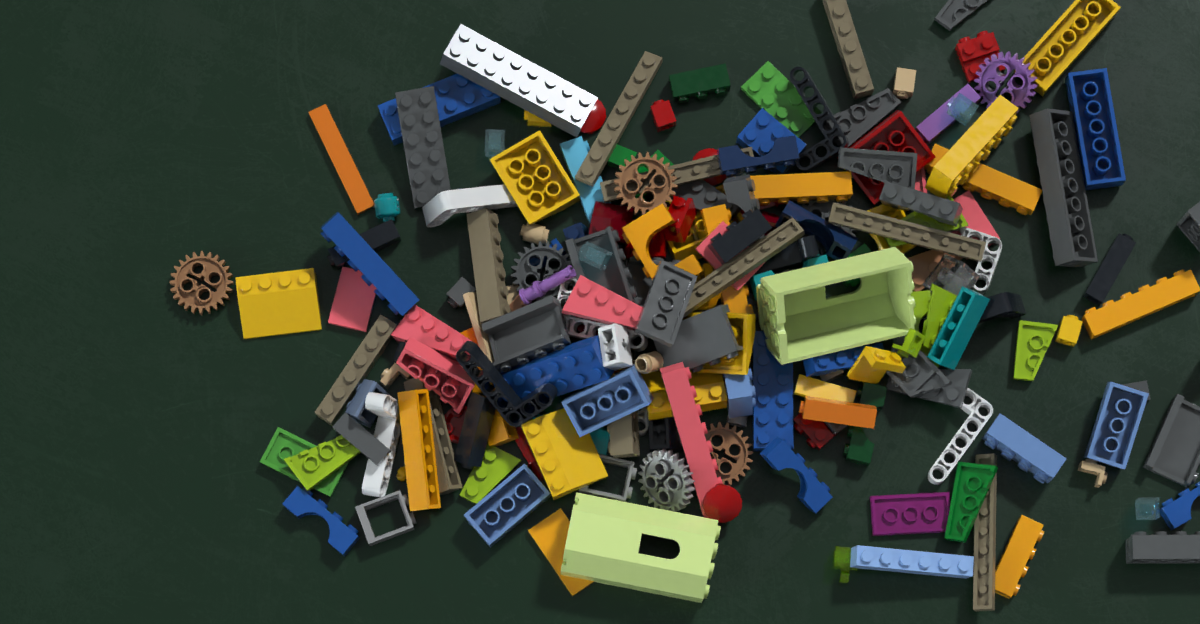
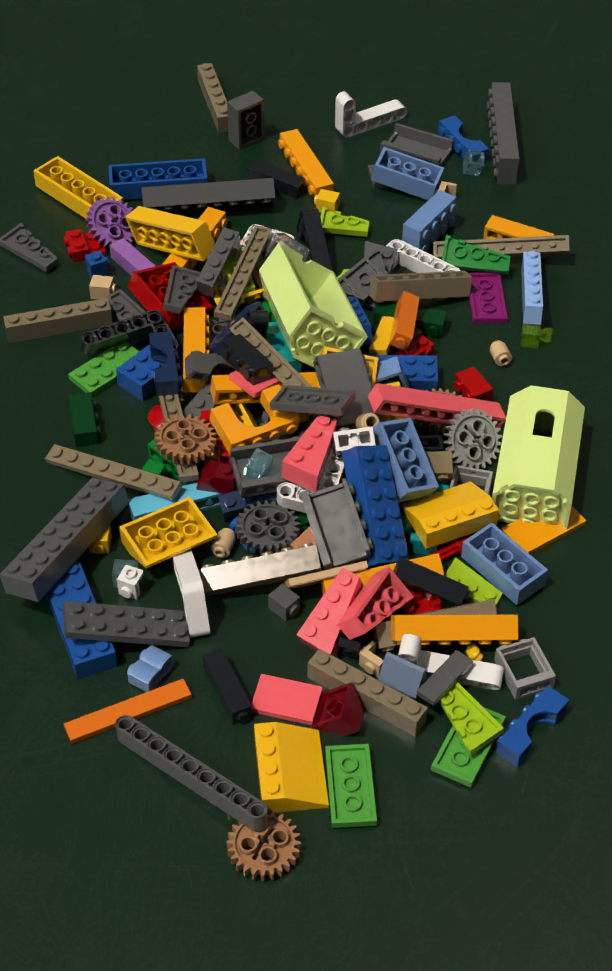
camera: 90 degrees left, 30 degrees down
(261, 356) = (350, 786): none -> bright green plate
(265, 224) = (192, 773): none -> dark grey beam
(335, 344) = (339, 711): none -> dark red slope
(365, 259) = (252, 664): blue brick -> none
(384, 174) = (150, 668): none -> medium blue brick
(387, 206) = (187, 665): teal head -> none
(481, 147) = (129, 582): none -> white bracket
(502, 389) = (411, 530): black beam -> none
(540, 288) = (287, 516): medium lavender pin -> none
(663, 115) = (112, 445): red brick -> none
(722, 503) = (491, 399): red dish -> none
(758, 488) = (473, 385): none -> red brick
(812, 492) = (471, 349): blue arch -> none
(813, 523) = (500, 353): none -> tan brick
(874, 363) = (359, 280): yellow bracket -> none
(904, 433) = (424, 285): none -> dark tan brick
(911, 345) = (342, 268): lime bracket -> none
(939, 73) = (96, 264): none -> blue brick
(939, 308) = (315, 252): lime wing -> none
(958, 328) = (330, 240): teal brick -> none
(961, 108) = (134, 242): clear light blue brick -> none

